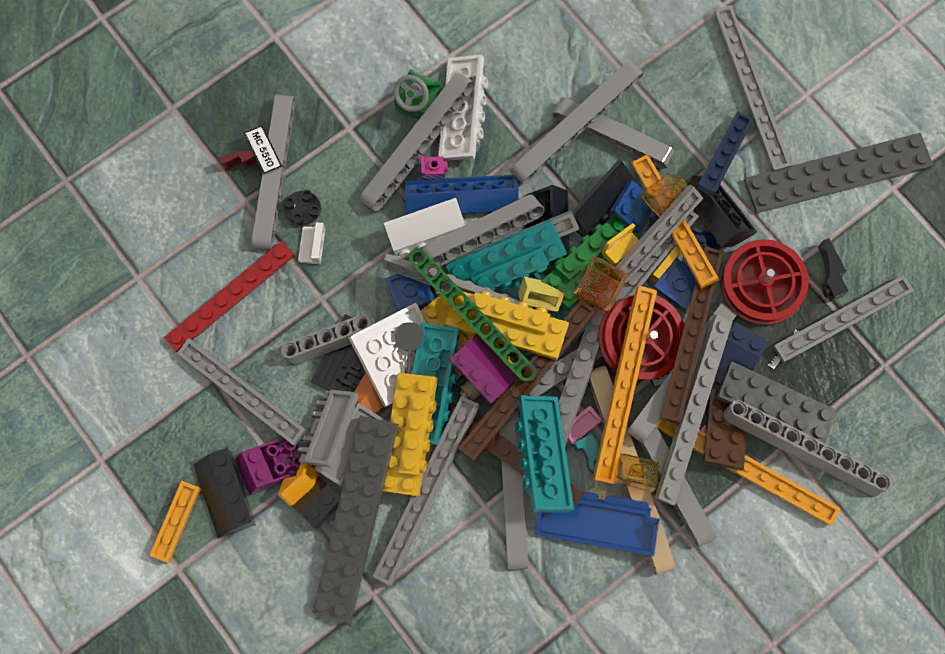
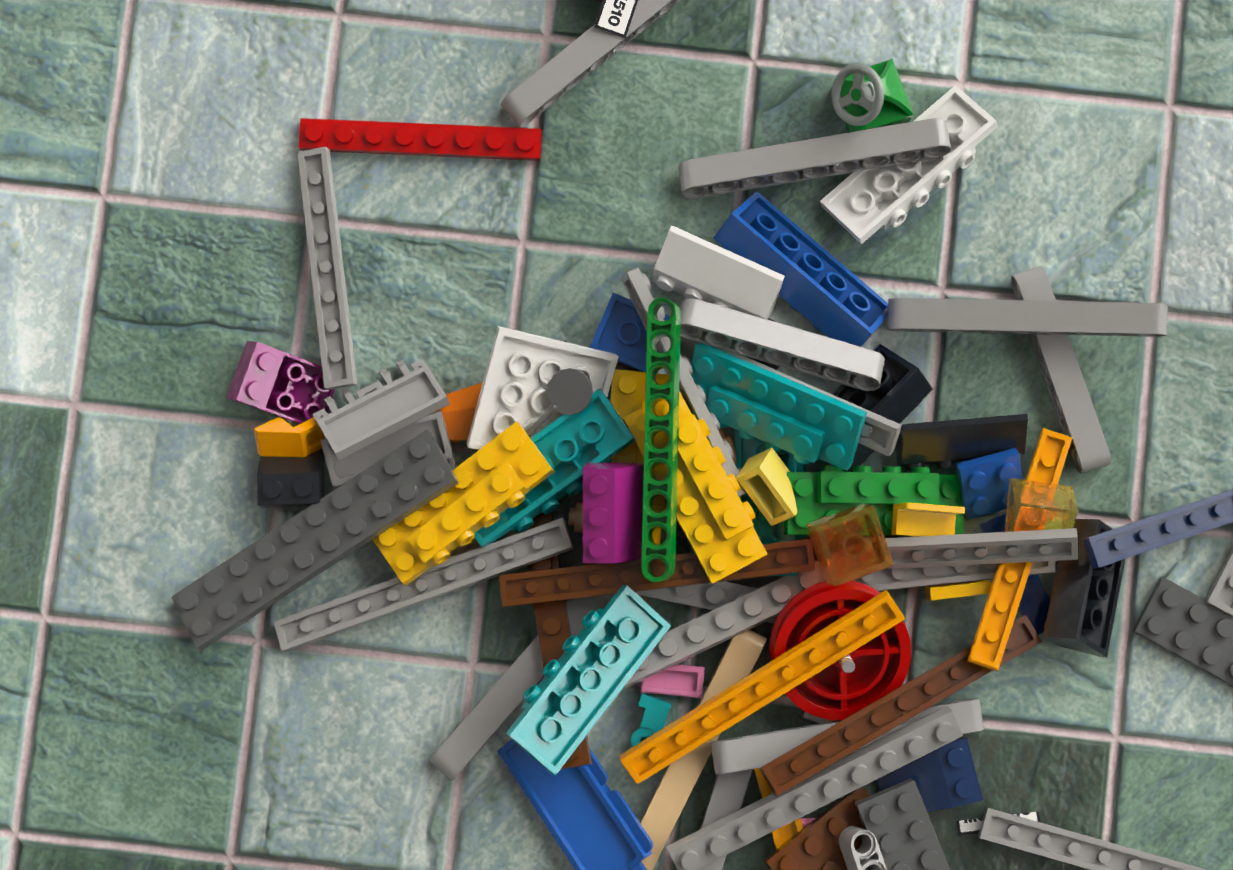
camera: 40 degrees right, 10 degrees up
(175, 522) = (118, 348): light orange plate -> none
(224, 493) = (201, 368): black slope -> none
(302, 207) = (603, 110): black dish -> none
(312, 244) = (572, 166): white panel -> none
(319, 339) = (469, 292): light grey beam -> none
(337, 366) = (472, 335): black hinge -> none
(430, 172) = (791, 207): dark pink brick -> none
(637, 472) = (677, 798): clear yellow slope -> none
(677, 284) = (948, 626): blue plate -> none
(764, 282) = (1053, 724): red wheel -> none
(834, 270) = (1133, 807): black slope -> none

